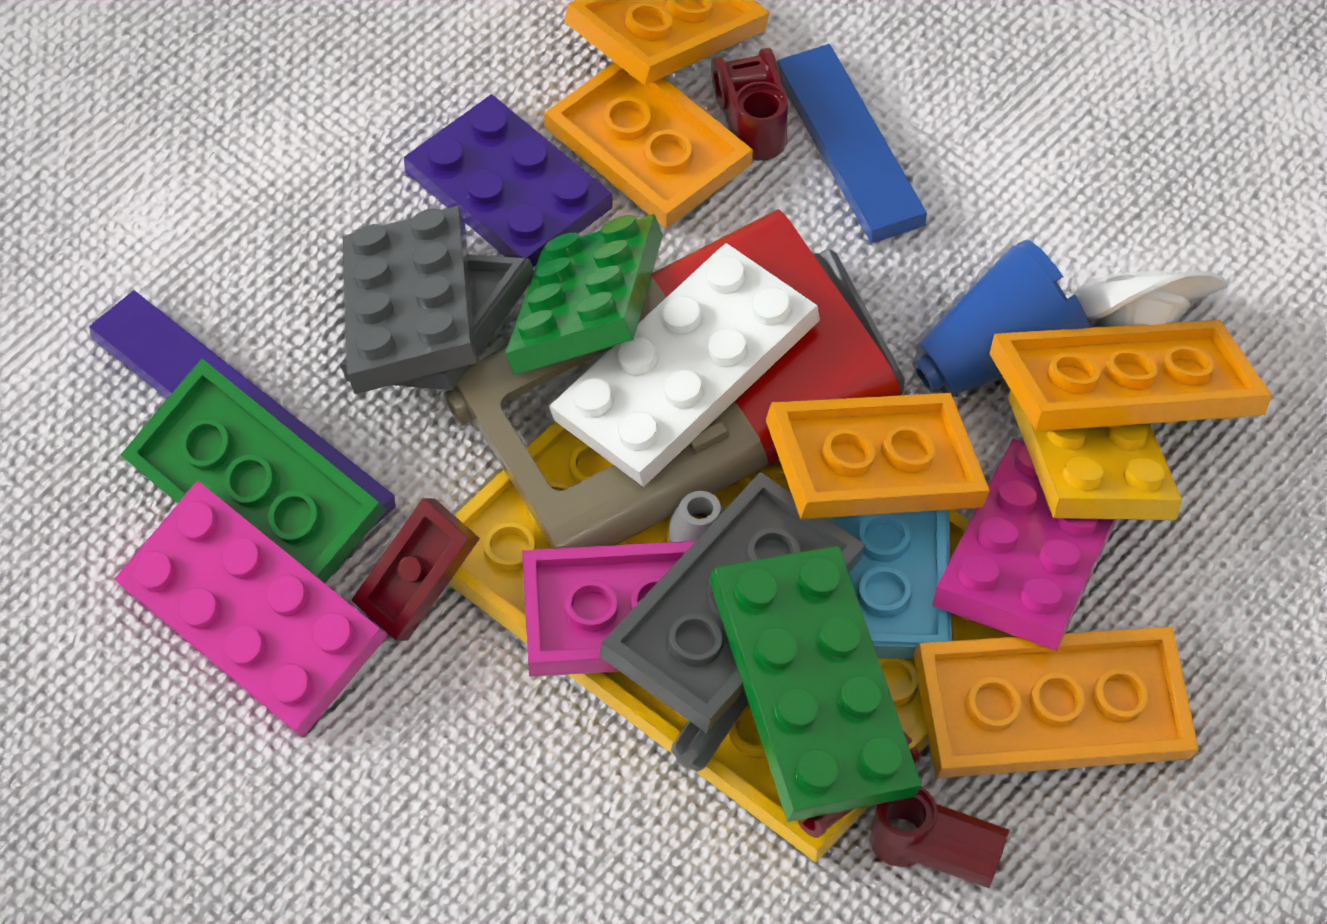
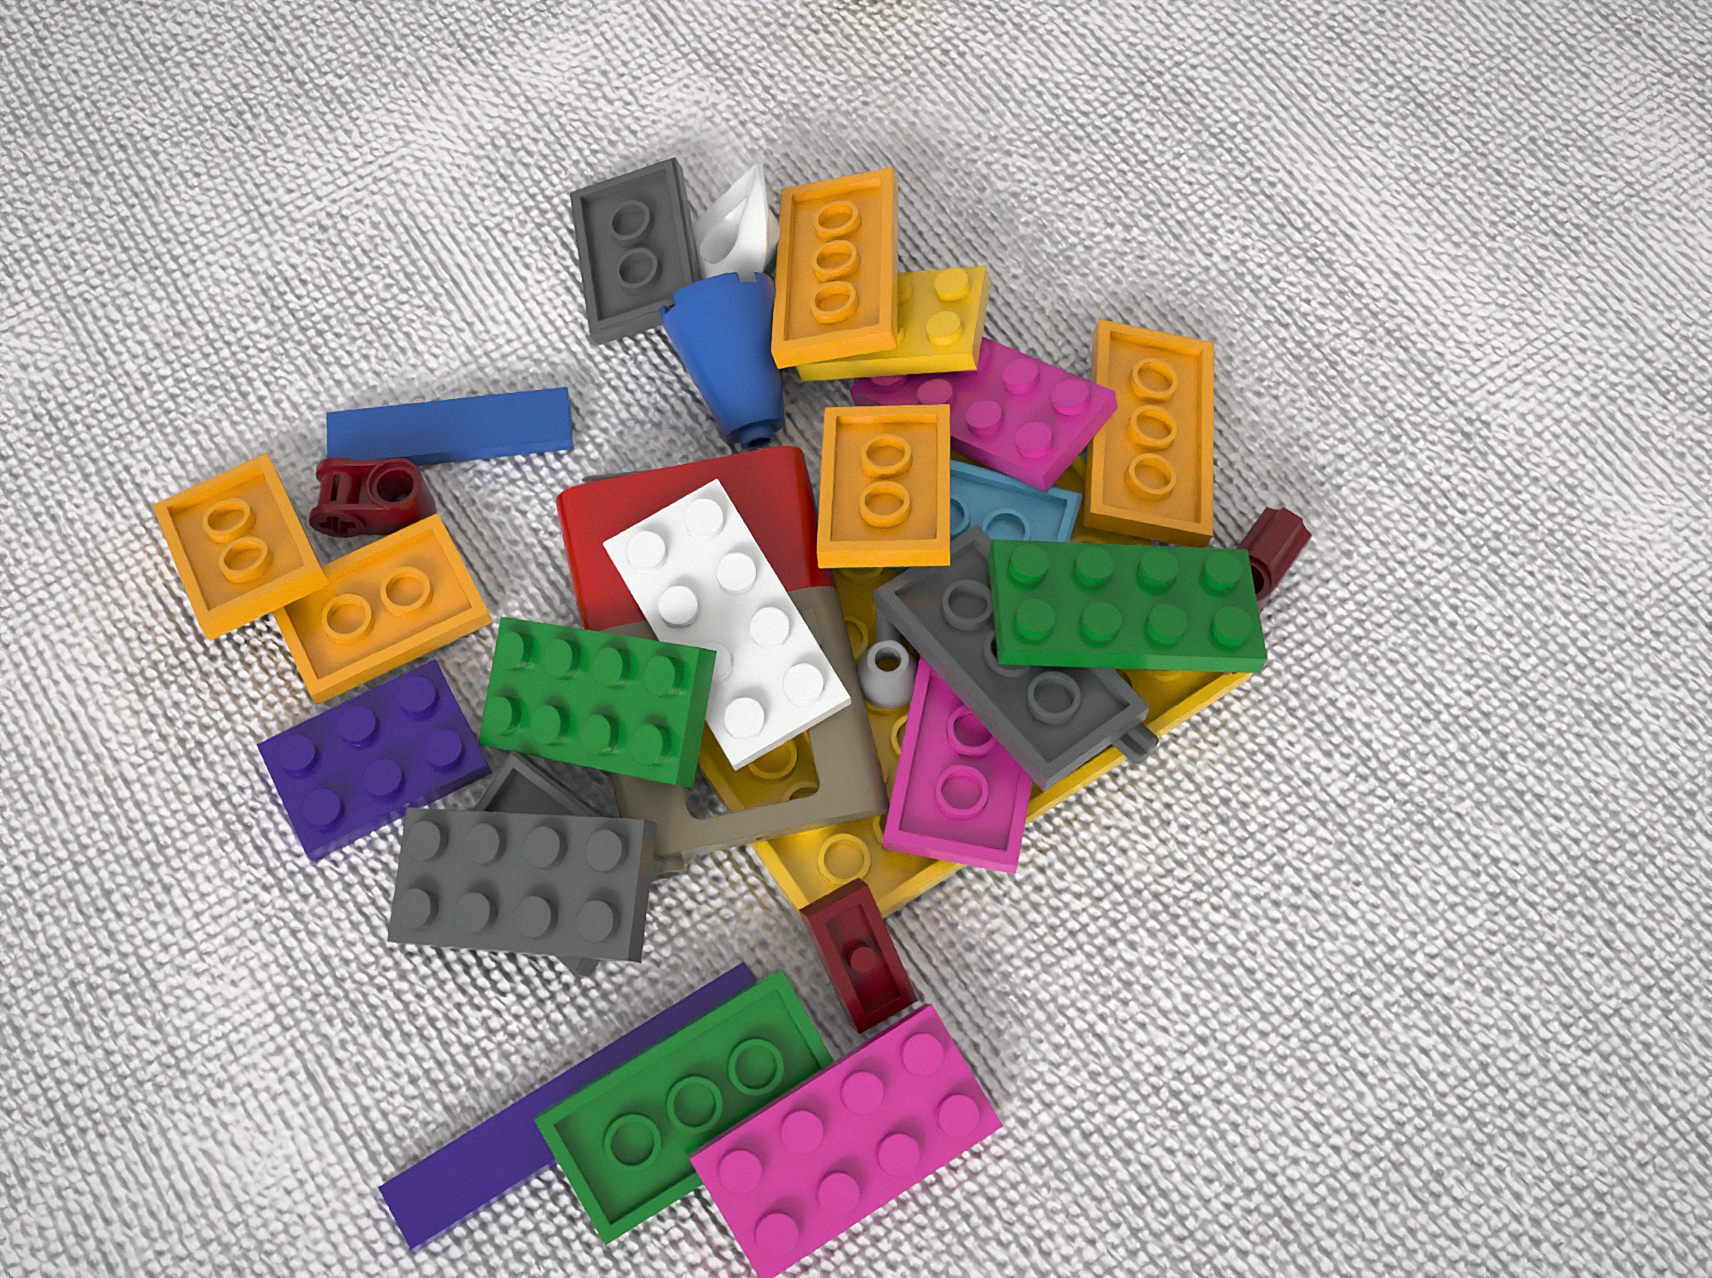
camera: 75 degrees left, 10 degrees up
(1106, 222) = (633, 248): none -> dark grey tile

